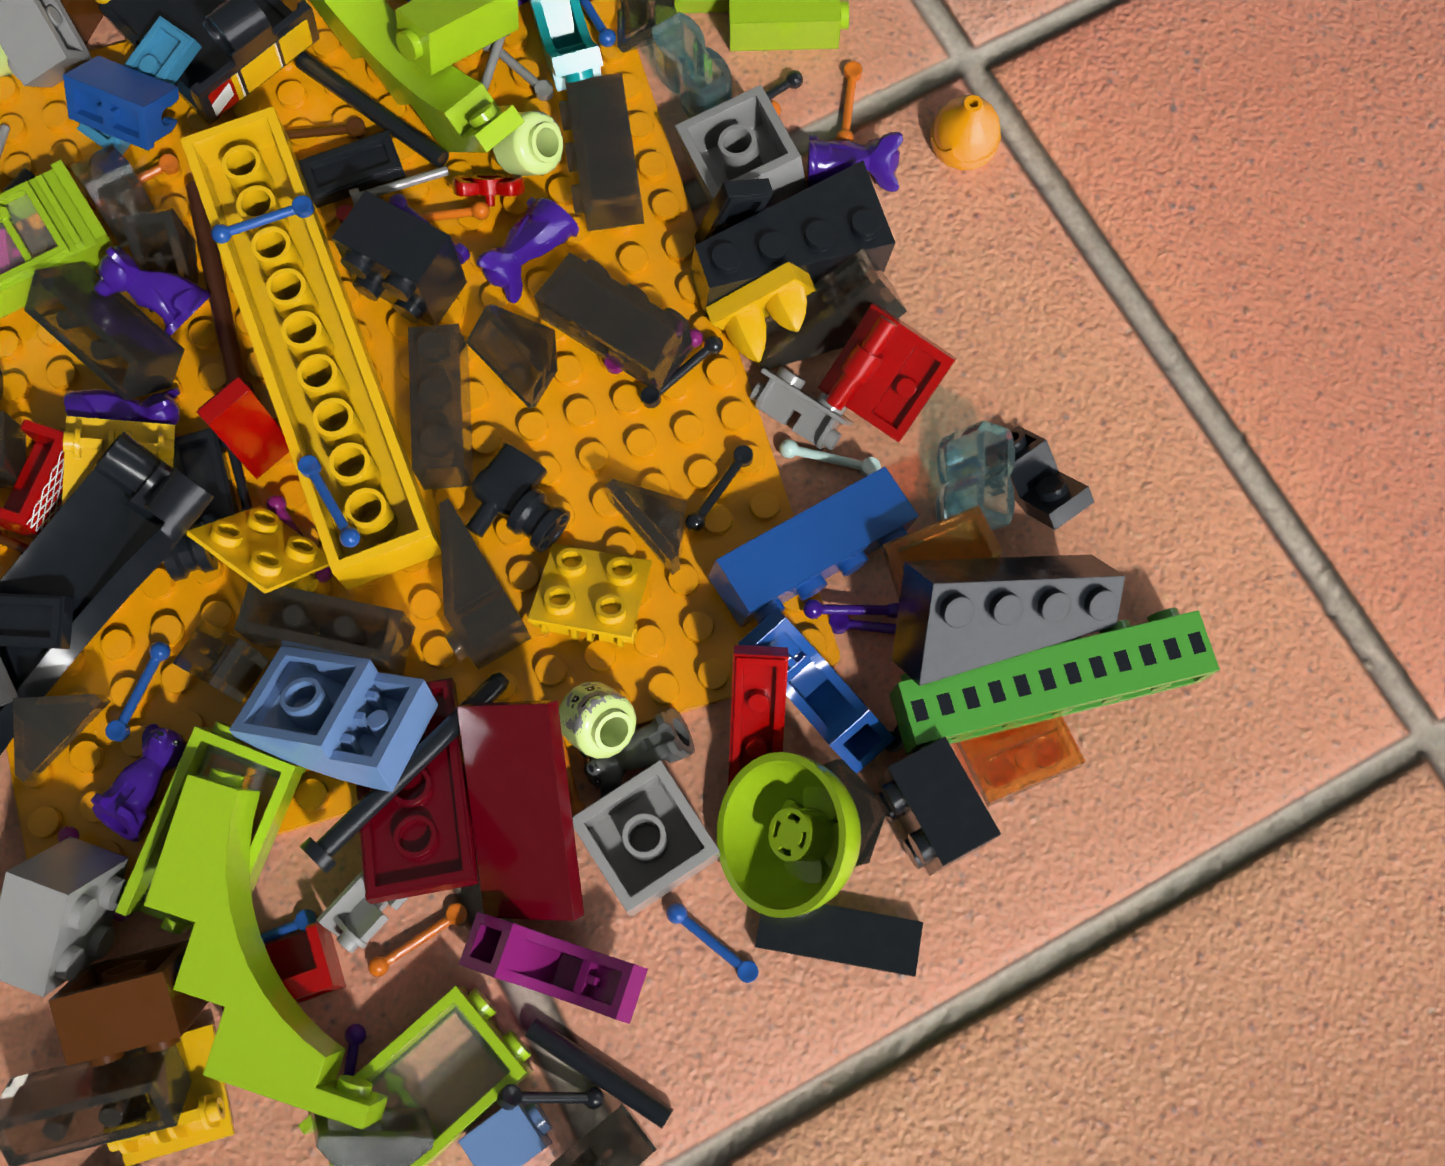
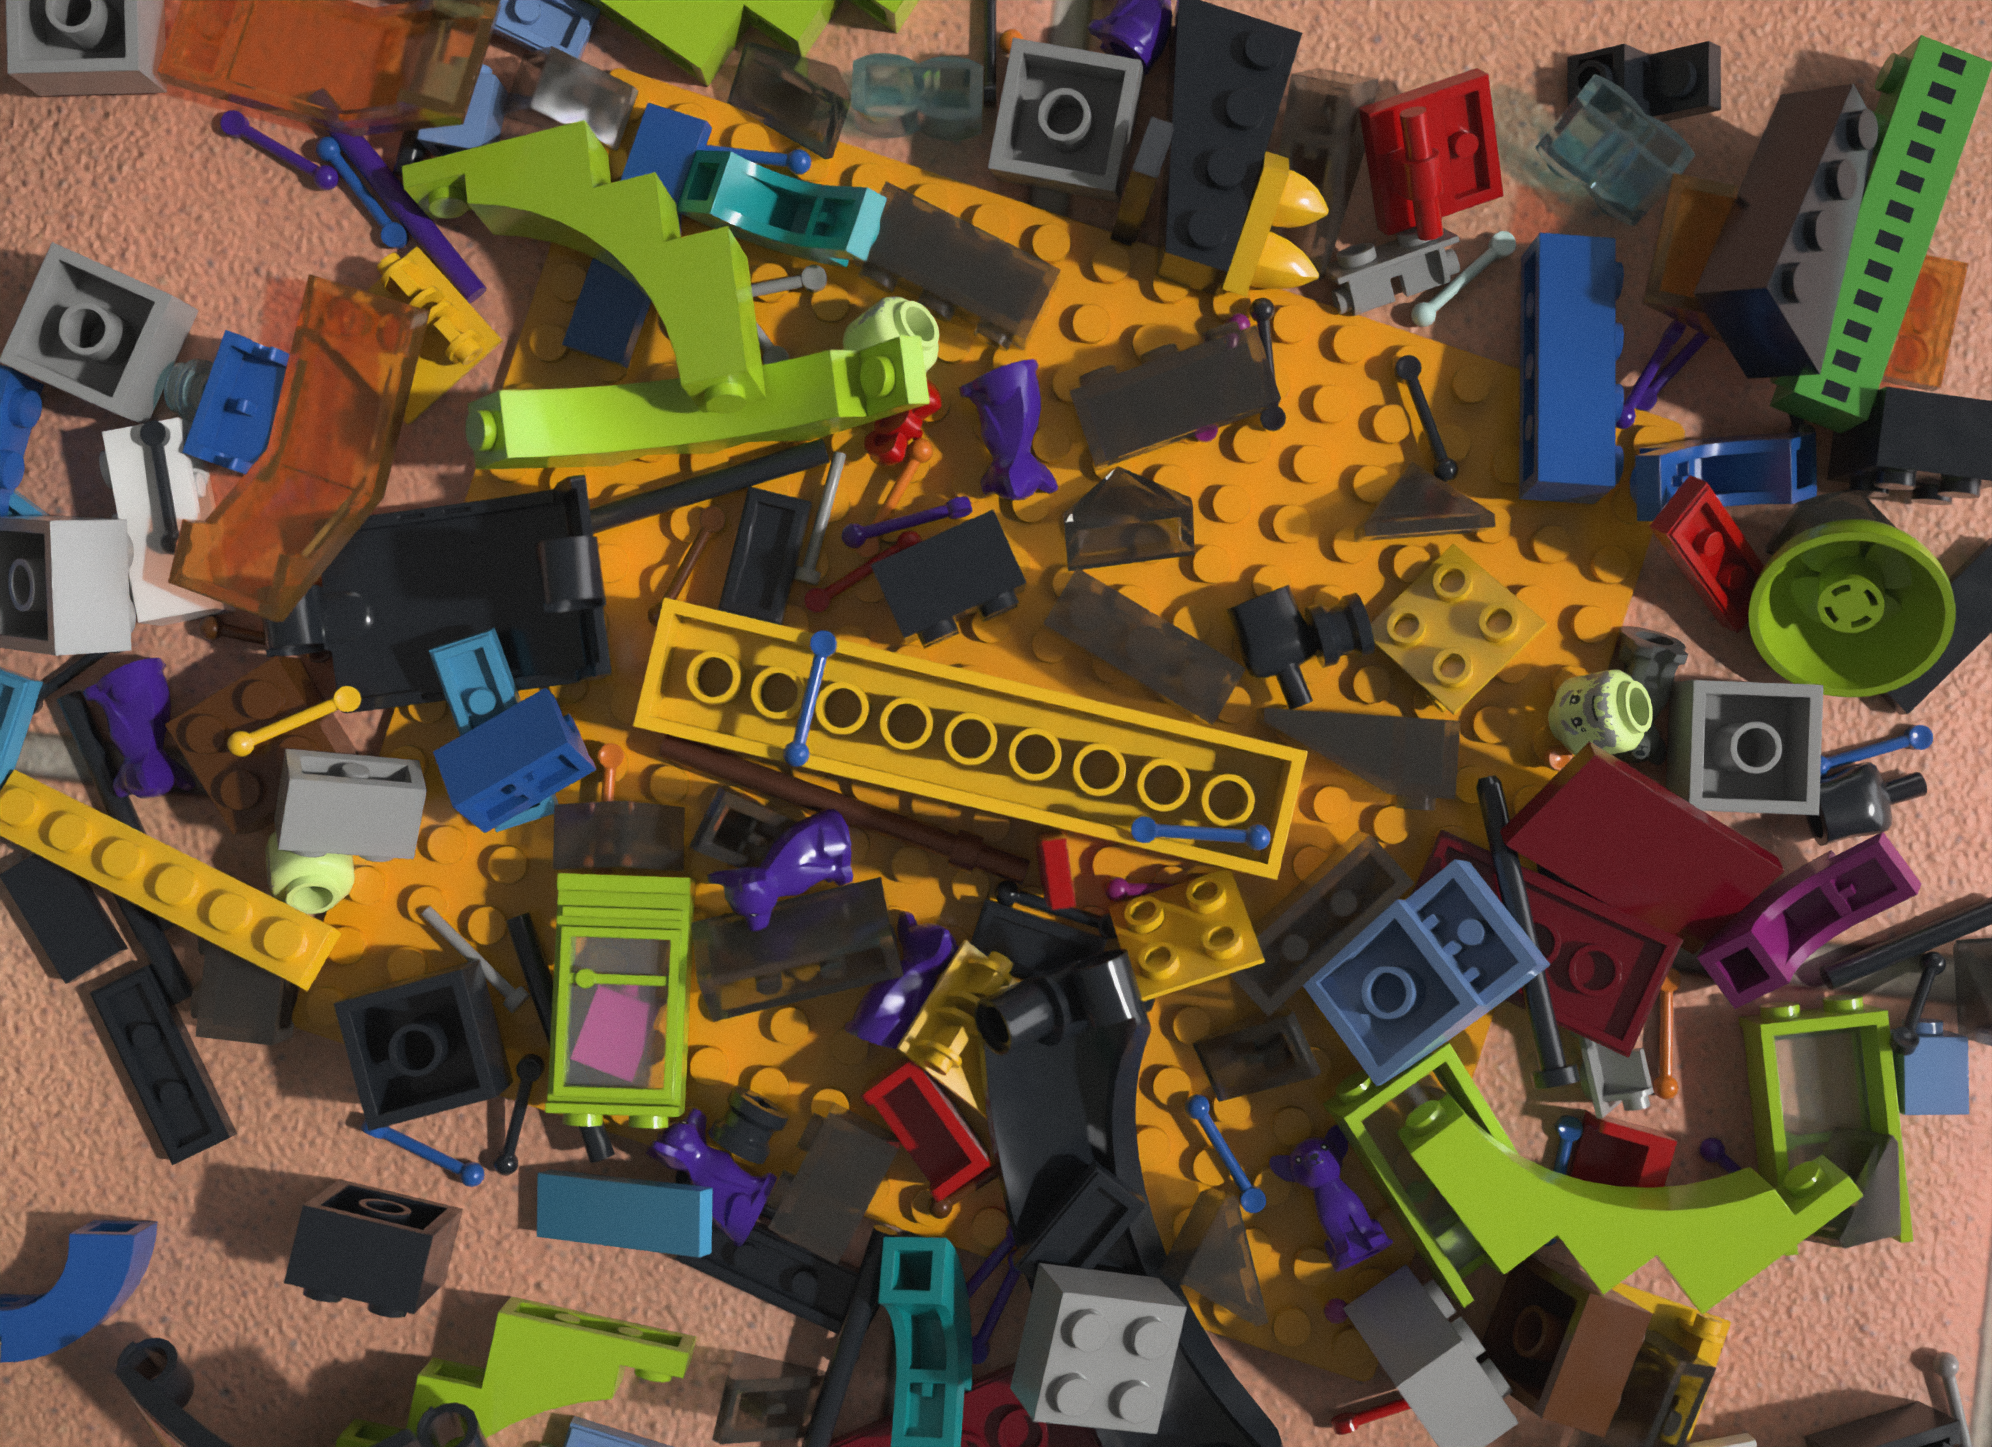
camera: 55 degrees left, 15 degrees up
(671, 957) = (1860, 802): none -> black piece

